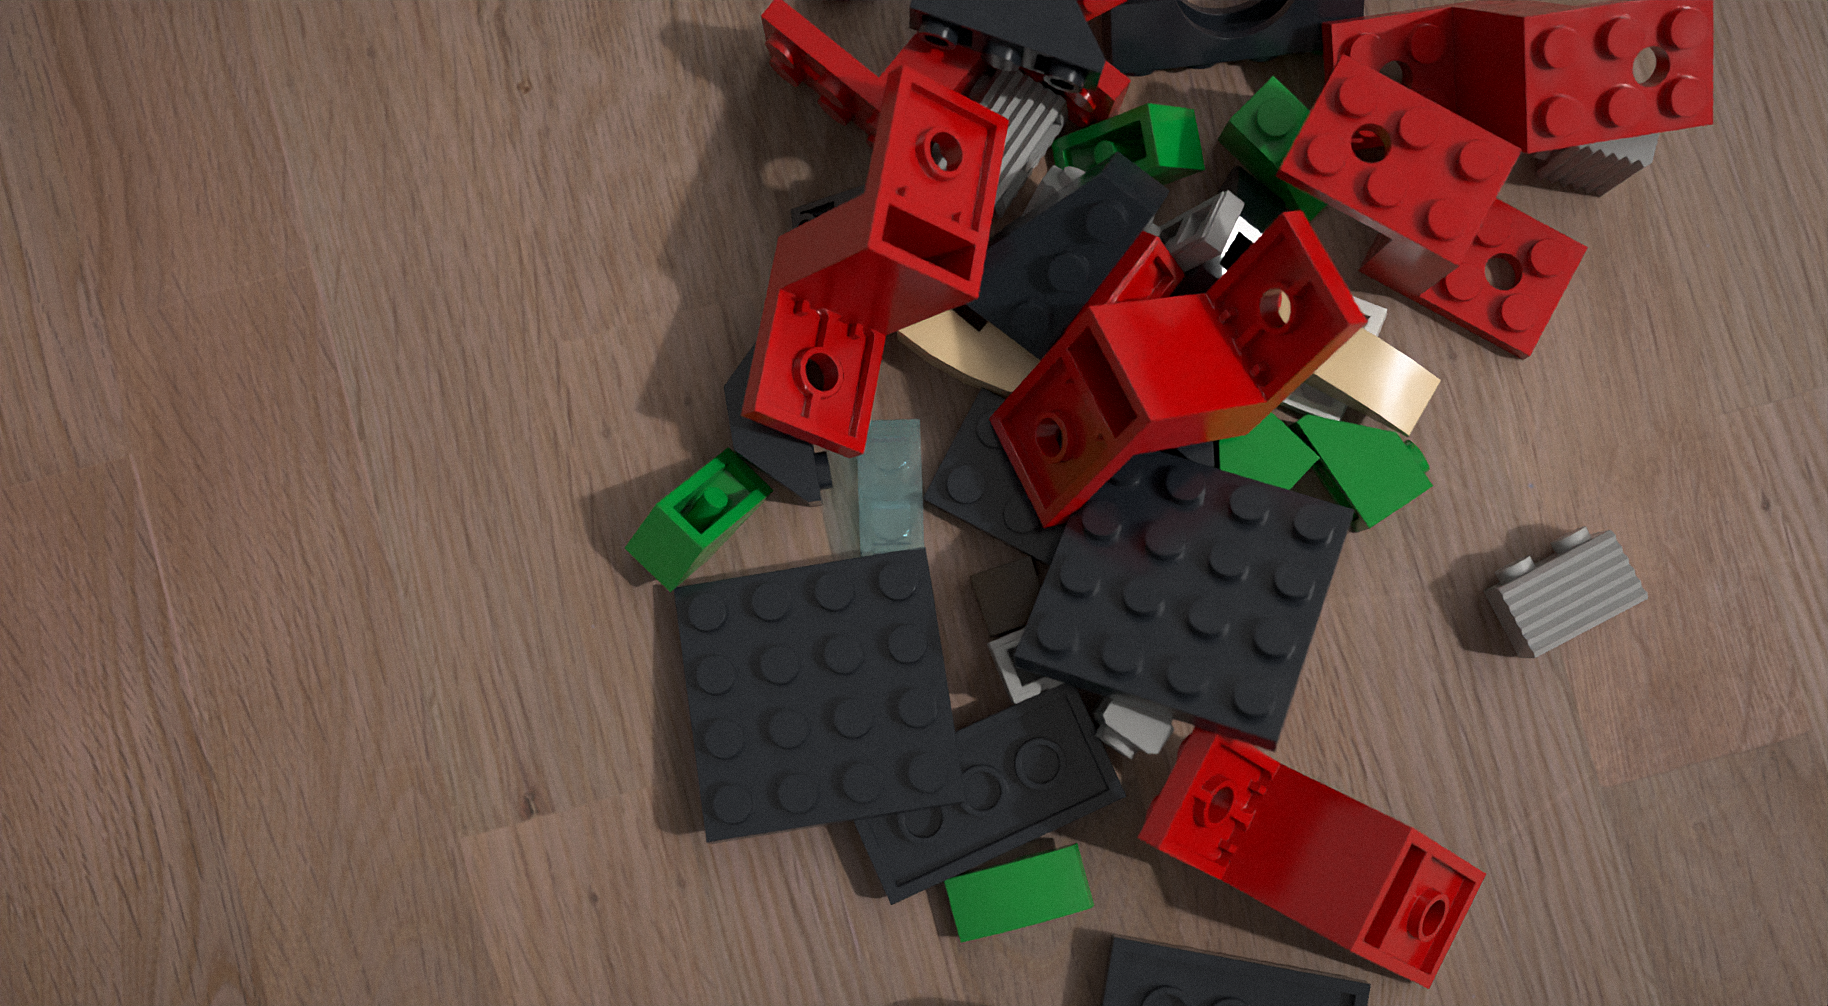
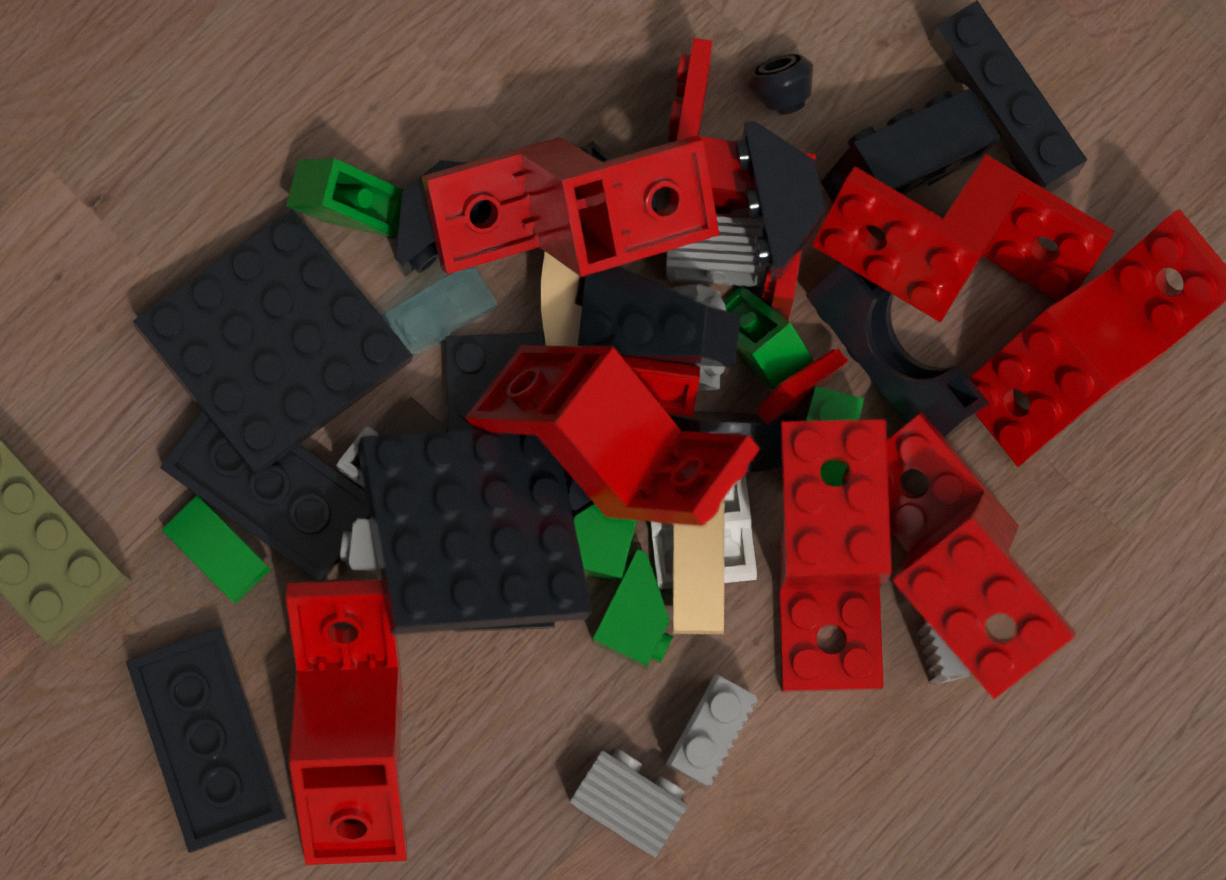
camera: 65 degrees right, 5 degrees down
(1202, 230) = (726, 409): light grey tile -> none
(1218, 134) = (801, 385): none -> red tile
(1538, 459) = (712, 731): none -> light grey brick

